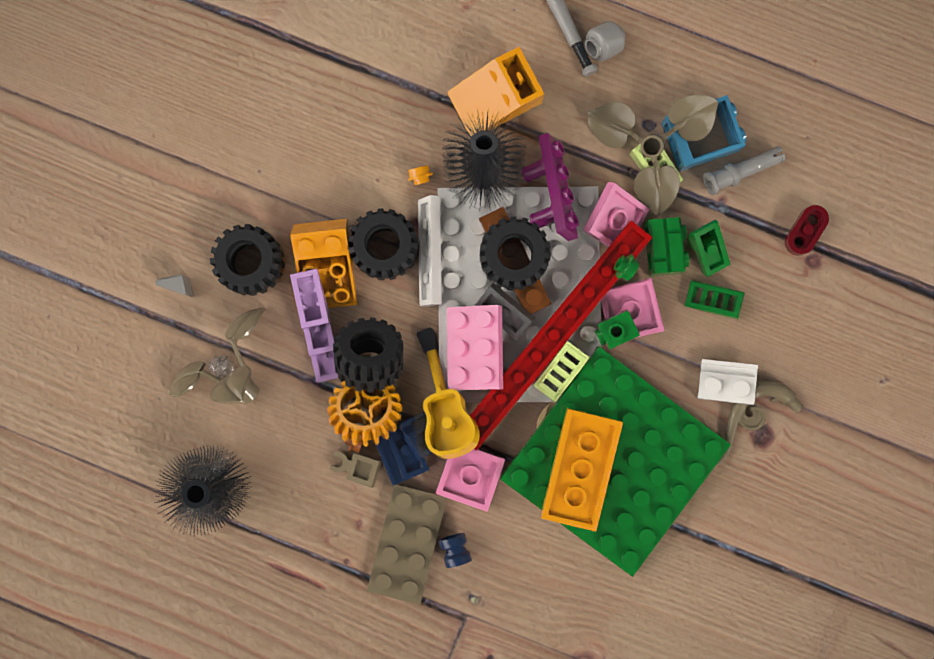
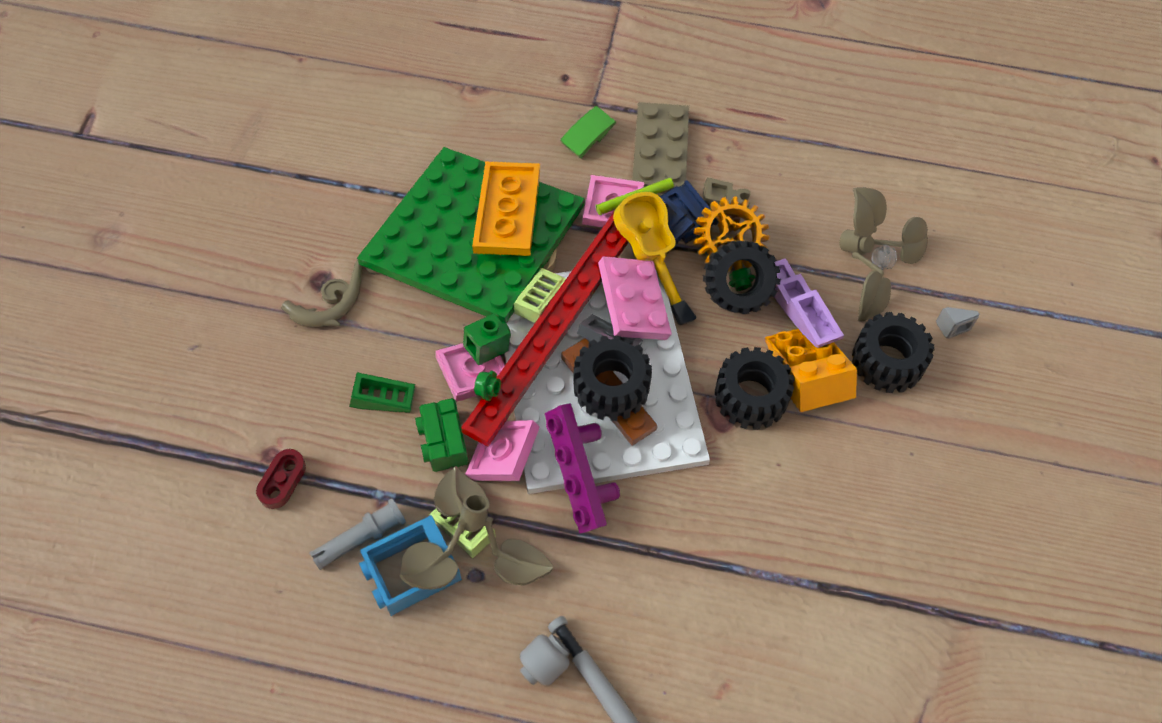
camera: 170 degrees right, 25 degrees down
(204, 491) = (863, 154): black piece -> none
(420, 174) = (733, 471): light orange plate -> none
(430, 258) = (704, 402): white plate -> none
(449, 473) = (656, 188): none -> lime bar
(455, 551) = (615, 144): dark blue wheel -> none
(480, 572) = (587, 131): none -> bright green slope
(483, 160) = (679, 475): black piece -> none
(501, 86) = (664, 572): light orange slope -> none
(709, 248) = (395, 440): green slope -> none
(728, 382) = (363, 316): white plate -> none

